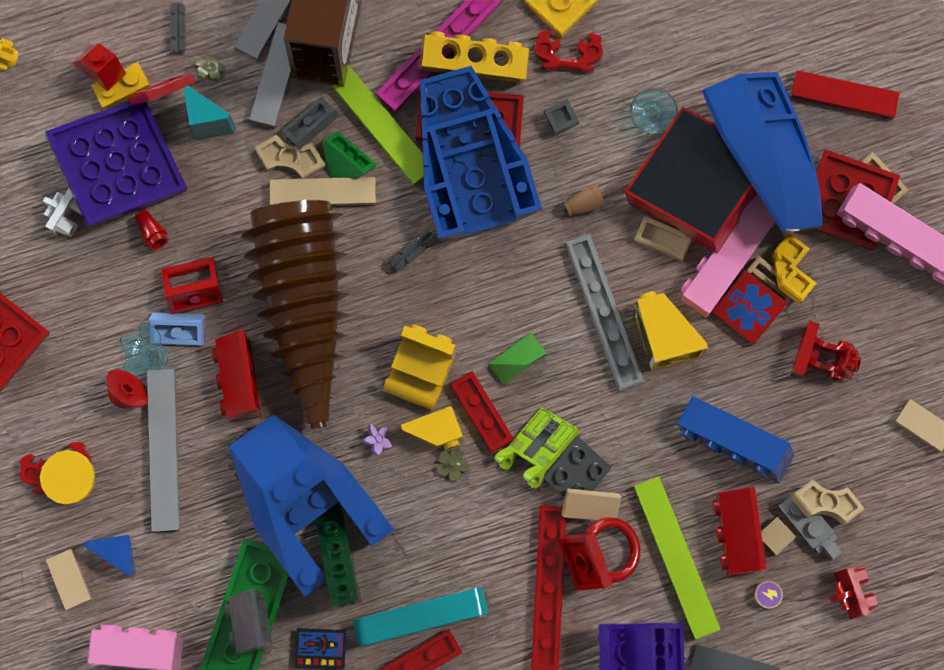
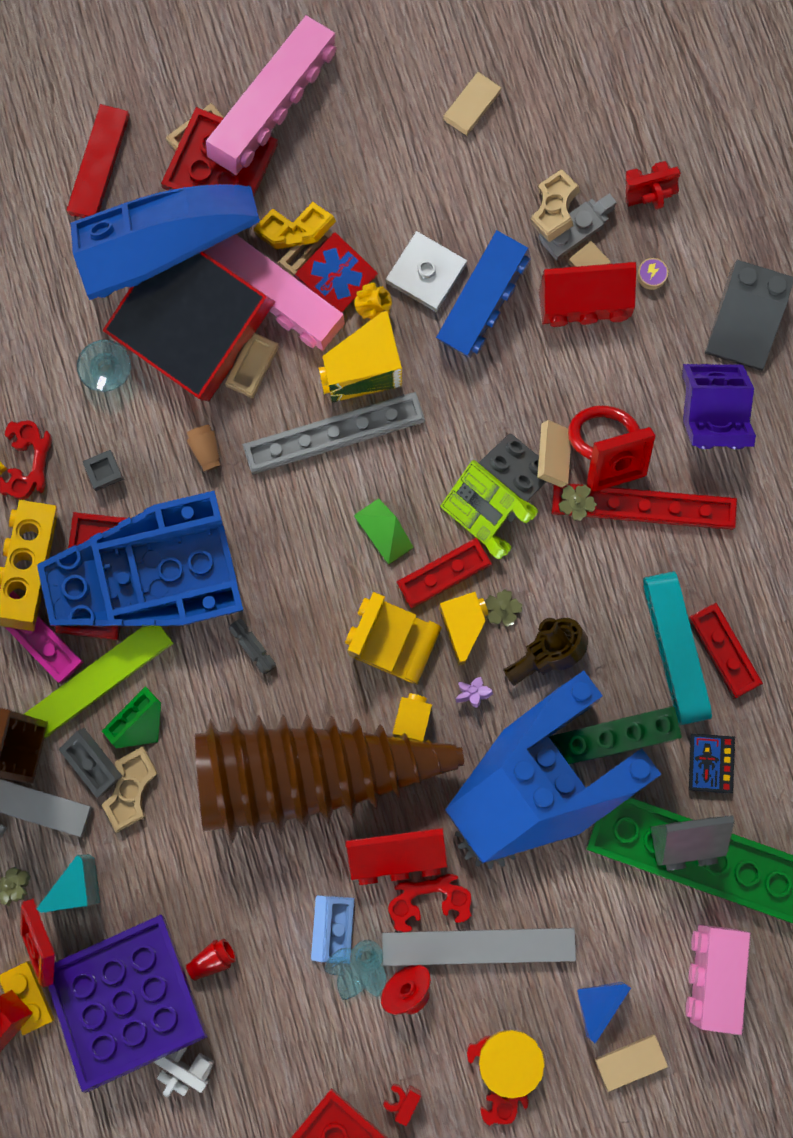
camera: 90 degrees left, 0 degrees up
(35, 392) = (406, 1104): none -> red tile
(194, 294) = (294, 909): red tile -> none
(194, 385) = (457, 899): none -> red helmet
(335, 190) = (175, 750): tan tile -> none
(352, 387) = (412, 717): none -> yellow brick
(414, 504) = (550, 649): none -> dark brown pin
(548, 526) = (577, 502): none -> olive plant
(677, 558) = (611, 367): lime tile -> none
(724, 340) = (372, 301): none -> yellow gear
(758, 388) = (426, 271): none -> white plate
(845, 362) = (399, 179): red tile -> none

